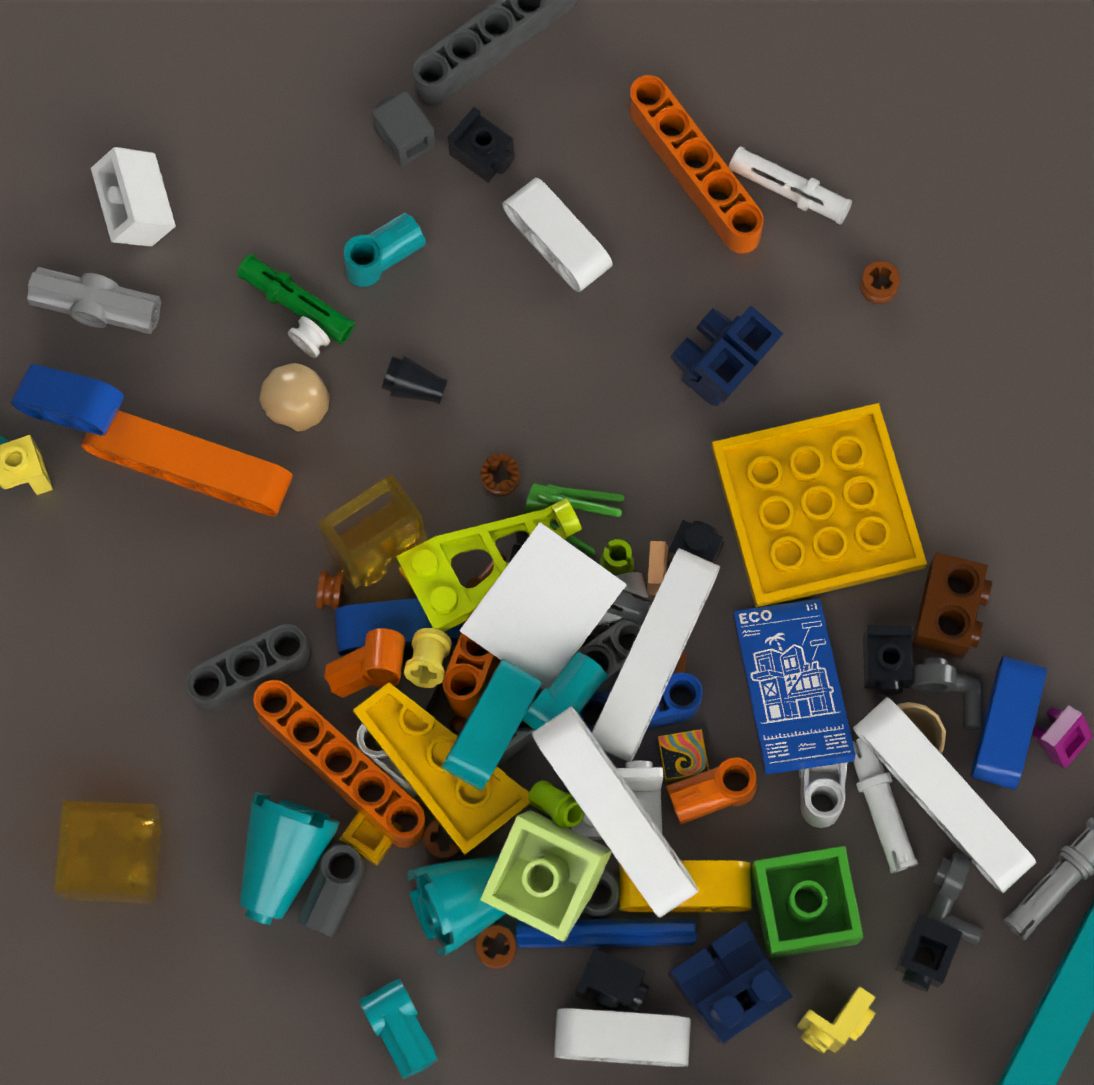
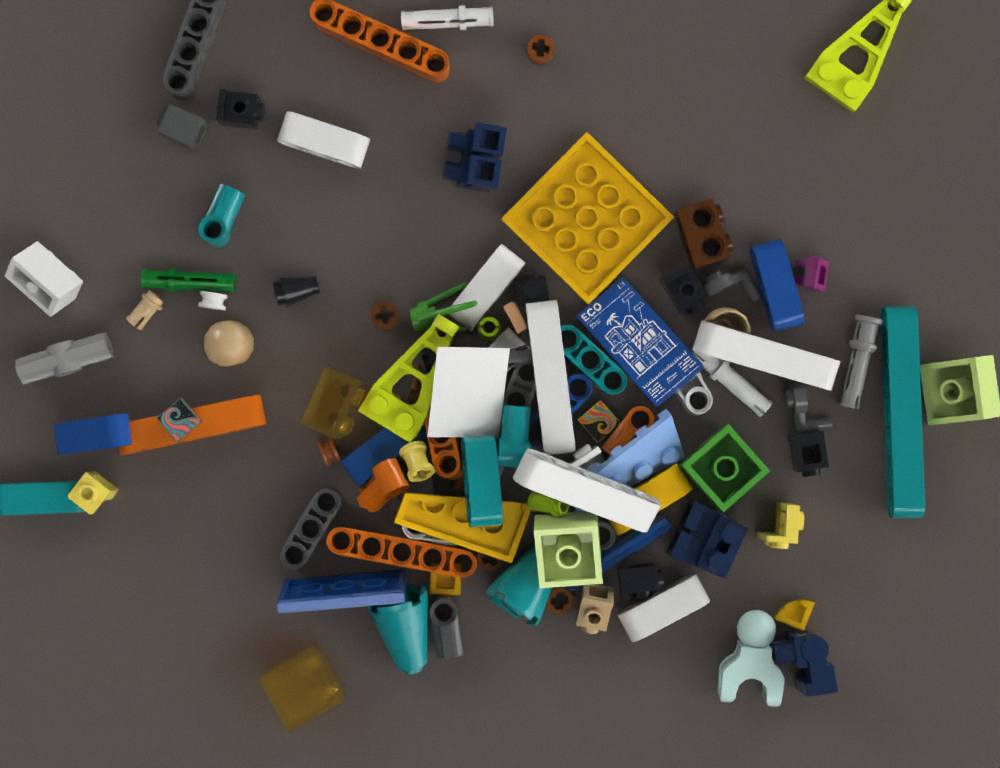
camera: 30 degrees left, 15 degrees up
(178, 441) = (179, 420): none -> tile
(224, 301) = (145, 309): none -> tan pin
(236, 761) = (343, 591): none -> blue tile
(395, 1019) = (527, 677): teal piece -> none
(545, 973) = (595, 608): none -> tan brick
(646, 511) = (487, 286): none -> white beam
(713, 825) = (643, 456): none -> light blue wing
(719, 693) = (604, 366): none -> teal beam

